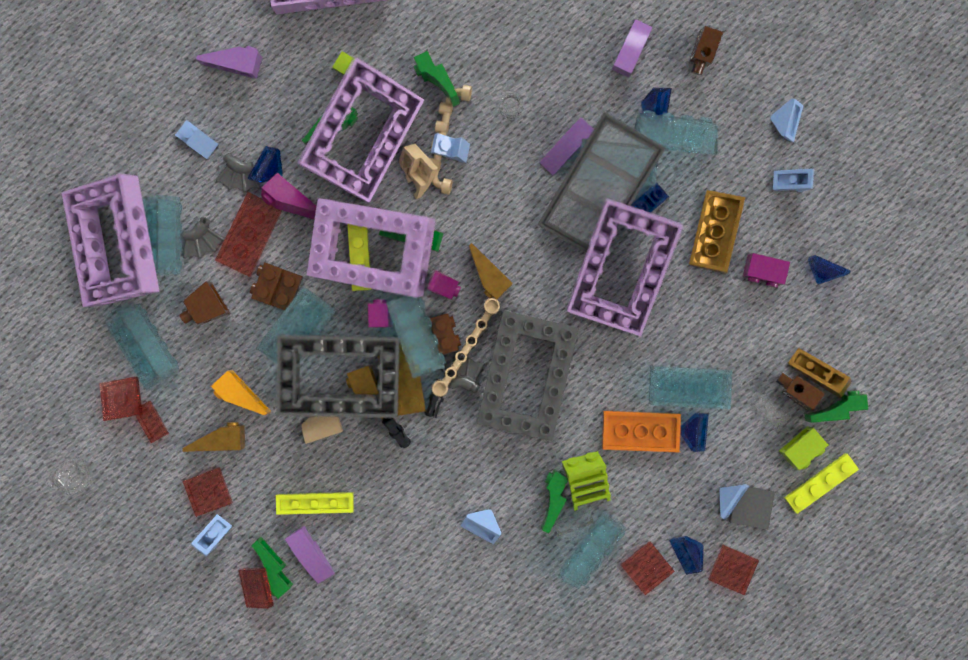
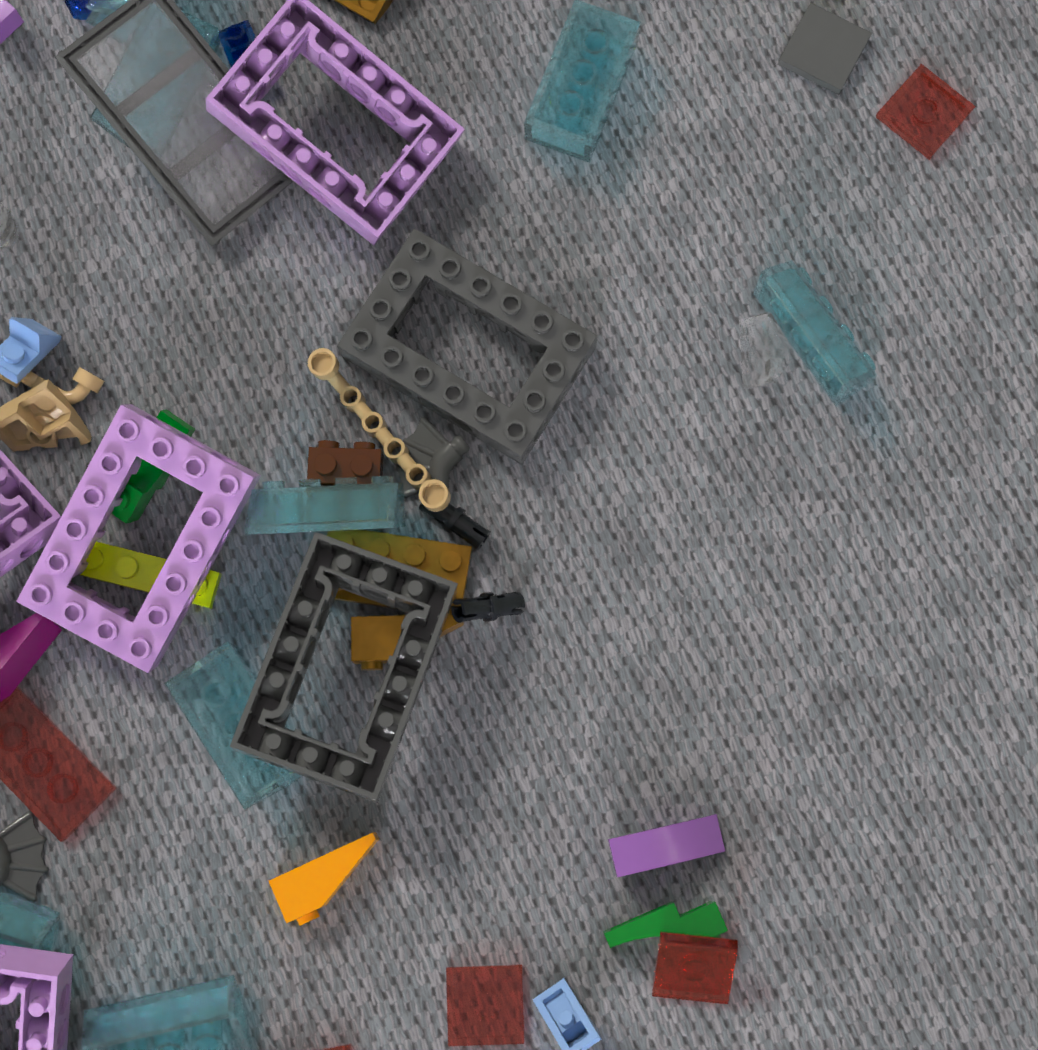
camera: 70 degrees left, 10 degrees down
(204, 305) = (135, 888): reddish brown torso -> none
(223, 439) = (393, 939): pearl gold slope -> none
(275, 286) = (149, 743): reddish brown plate -> none
(315, 503) = (572, 805): neon yellow plate -> none
(320, 427) = (432, 743): tan slope -> none
(379, 314) = (267, 564): magenta piece -> none
(444, 285) = (256, 434): magenta slope -> none
(483, 525) = (712, 512): light blue slope -> none
(491, 277) = (272, 354): pearl gold slope -> none
(555, 484) = (679, 360): green slope -> none
(566, 146) = (98, 156): medium lavender slope -> none
(583, 471) = (669, 301): lime plate -> none
(641, 431) = (632, 188): orange plate -> none
(647, 568) = (878, 253): clear red tile -> none
(689, 554) = (874, 176): clear blue slope -> none
(695, 431) = (662, 100): clear blue slope -> none
(730, 497) = (794, 74): light blue slope -> none

